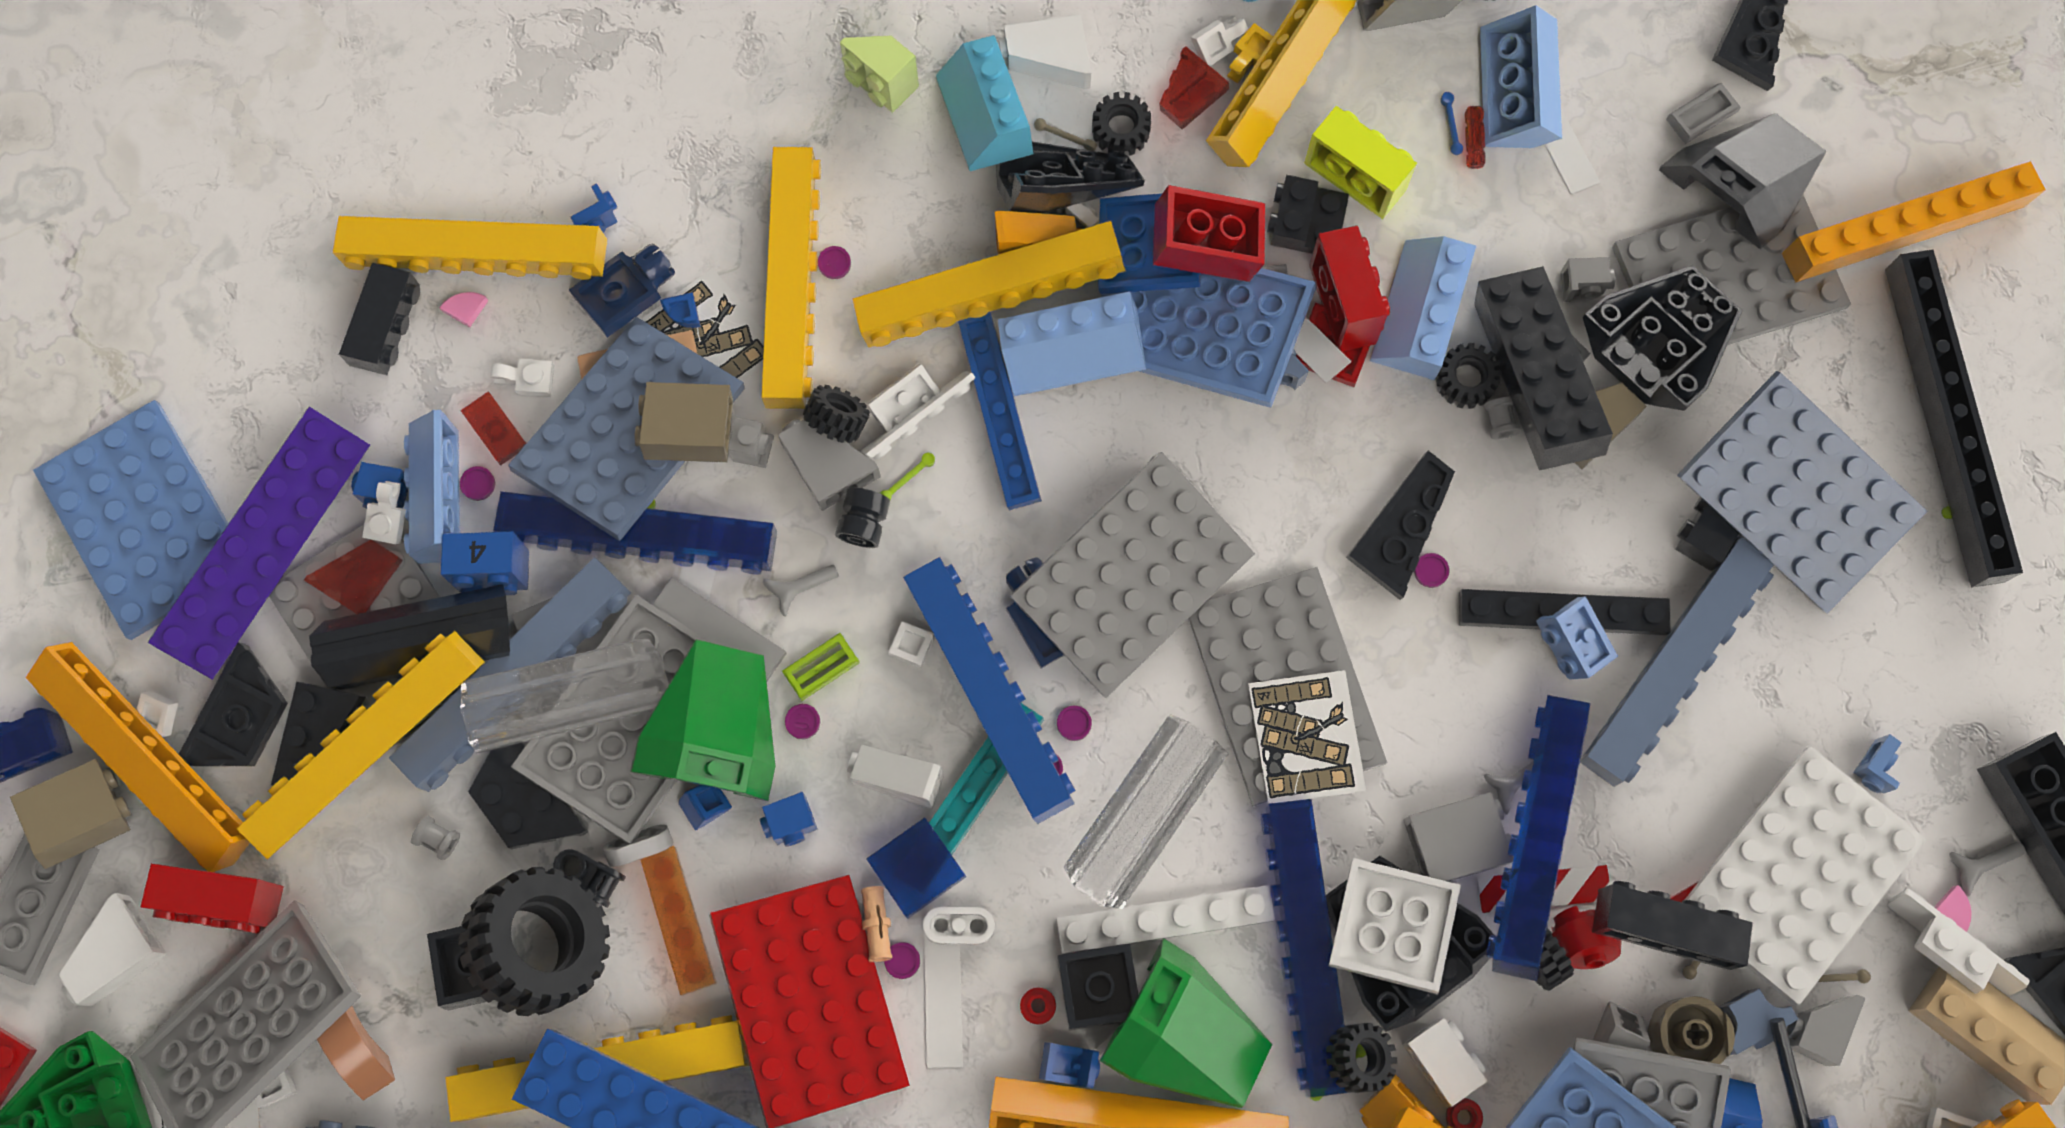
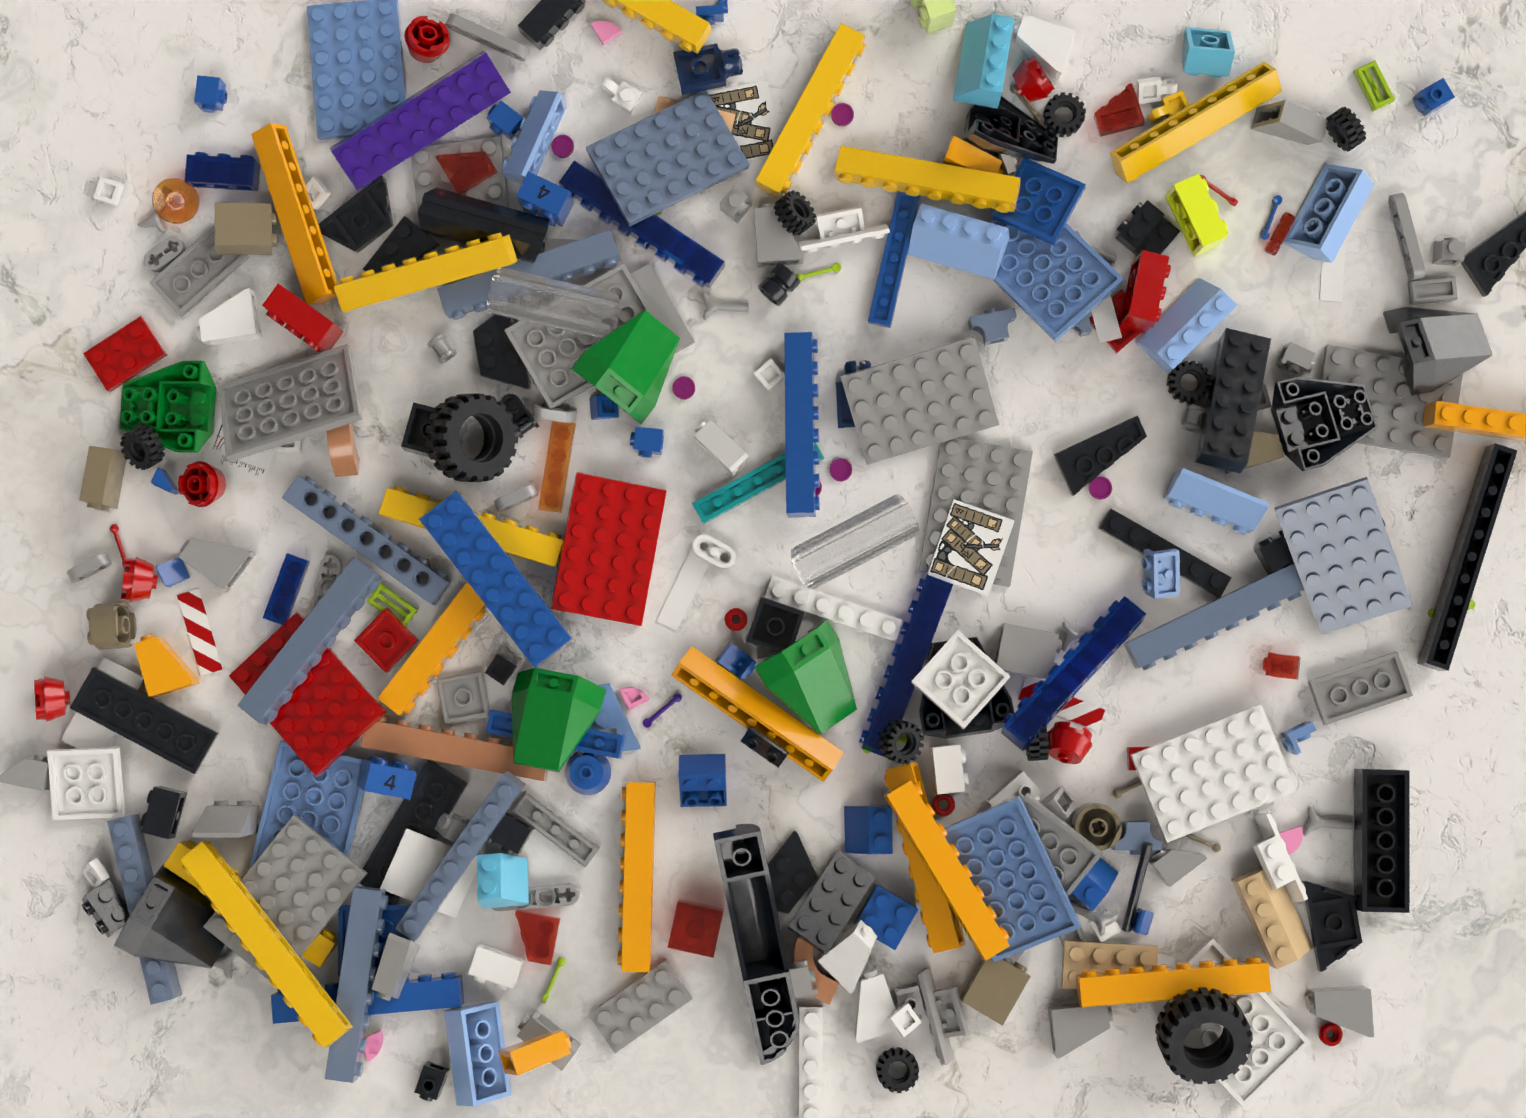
camera: 30 degrees right, 10 degrees up
(220, 432) = (426, 39): none -> red cone
(305, 391) = (487, 37): none -> light grey beam
(383, 519) = (498, 142): white plate -> none
(494, 428) = (588, 117): clear red plate -> none
(640, 995) = (516, 497): none -> light grey beam
(682, 310) = (735, 99): blue tile -> none
(685, 422) = (702, 174): dark tan brick -> none
(828, 677) = (730, 367): lime tile -> none
(876, 924) = (668, 526): light nougat pin -> none
(904, 961) = (672, 554): magenta piece -> none
(916, 868) = (706, 506): clear blue tile -> none
(1058, 100) = (1032, 80): none -> red cone
(1175, 429) = (993, 325): none -> sand blue brick
(1209, 233) = (1074, 216): red brick -> none
(1392, 127) = (1231, 200): none -> red hinge
(1550, 1040) = (1017, 786): none -> white brick
(1592, 508) = (1216, 501): none -> light blue slope
(1633, 63) = (1406, 236): none -> light grey beam
(1672, 926) = (1116, 761): black brick -> none
(1696, 50) = (1448, 252): none -> light grey brick
(1804, 681) = (1281, 666): none -> clear red bracket
(1920, 658) = (1360, 688): none -> light grey plate

